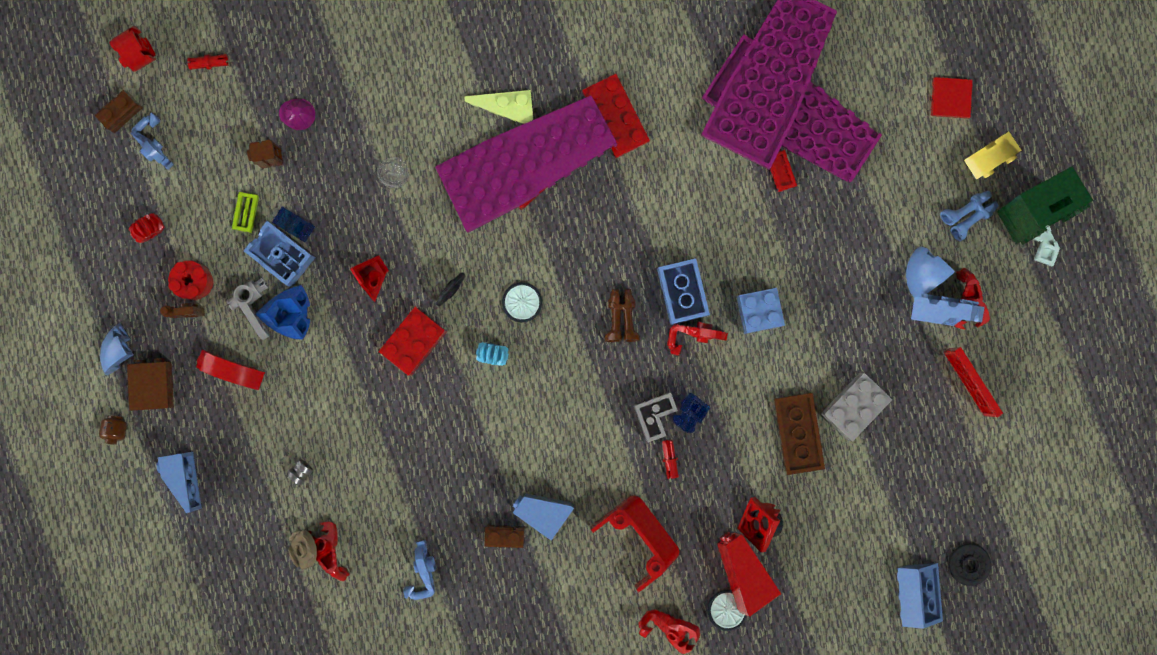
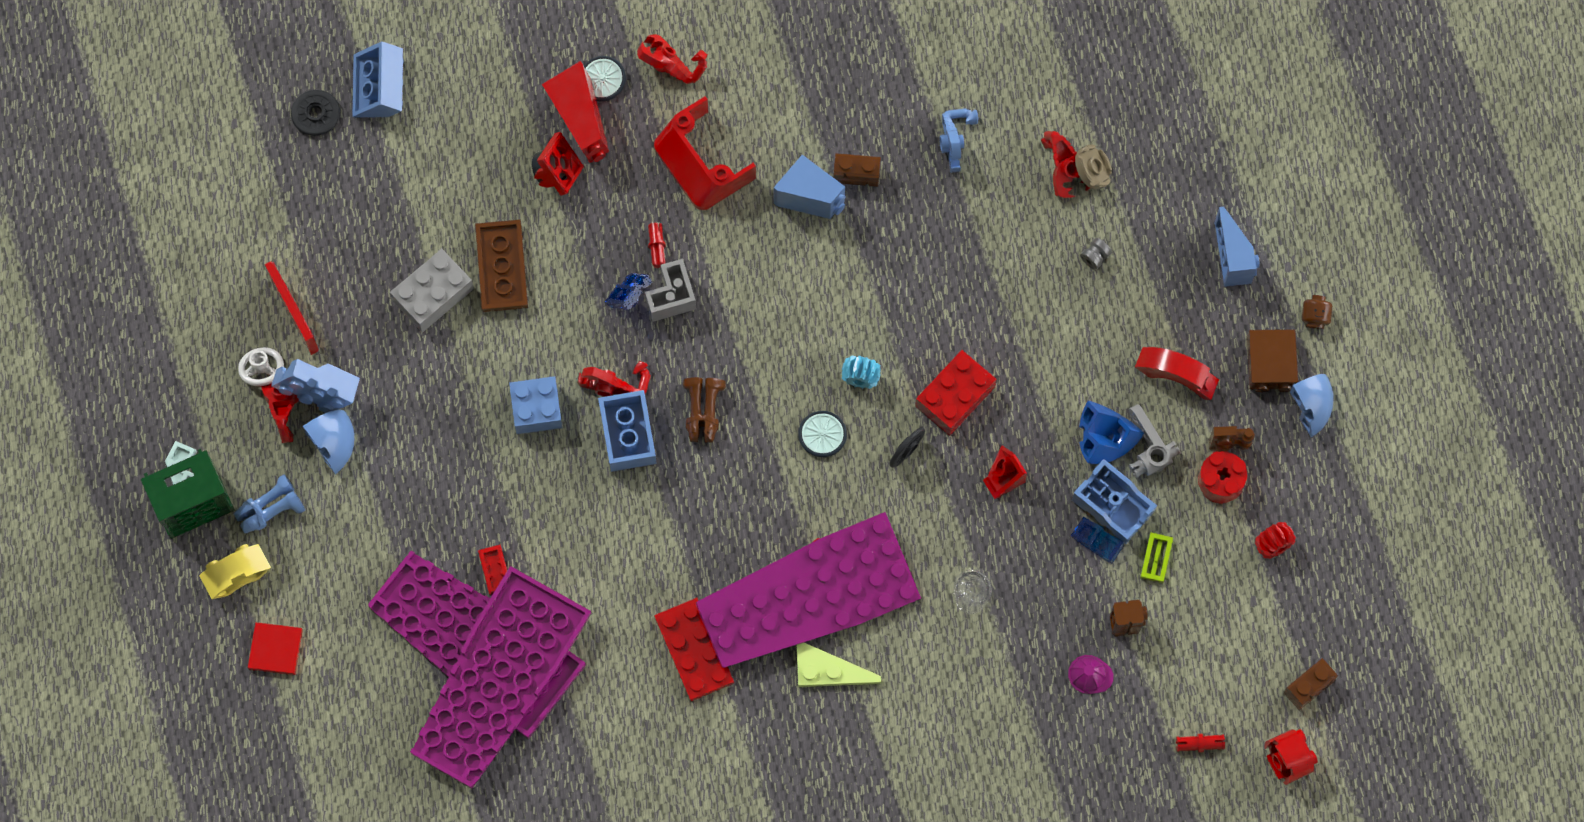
camera: 175 degrees left, 15 degrees down
(150, 149) = (1270, 635): medium blue animal -> none
(998, 338) = (259, 364): none -> white piece

